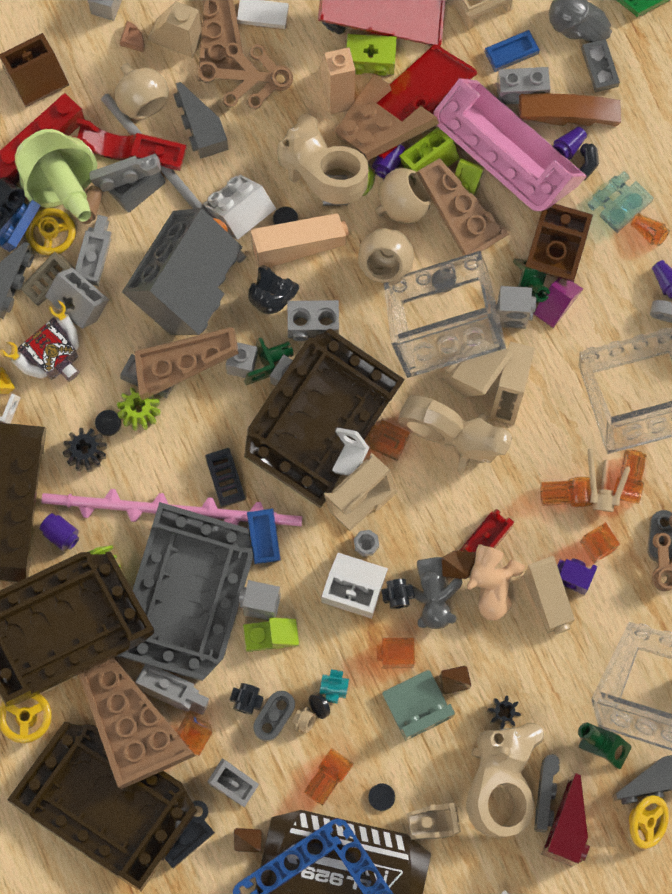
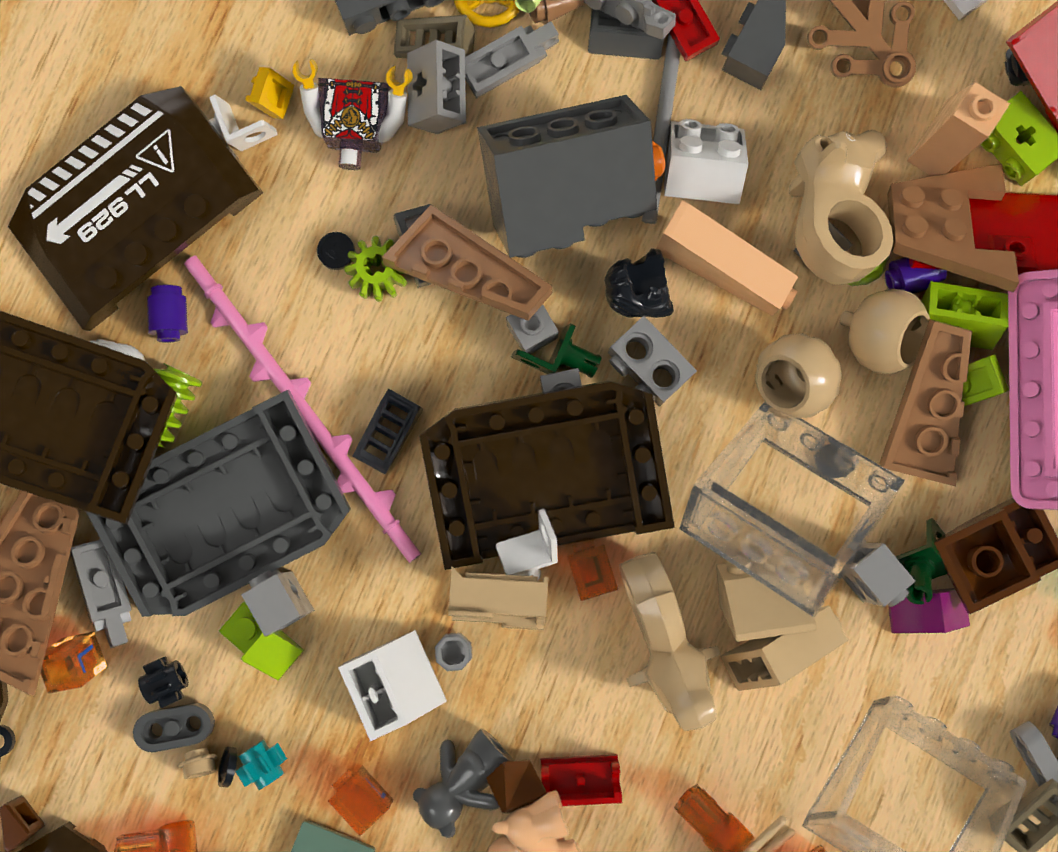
camera: 50 degrees right, 10 degrees up
(95, 450) = (272, 267): black gear -> none
(232, 783) = (60, 748): light grey slope -> none
(263, 536) = (359, 534): blue tile -> none
(284, 215) = (741, 222): black piece -> none
(398, 593) = (426, 741): black gear -> none

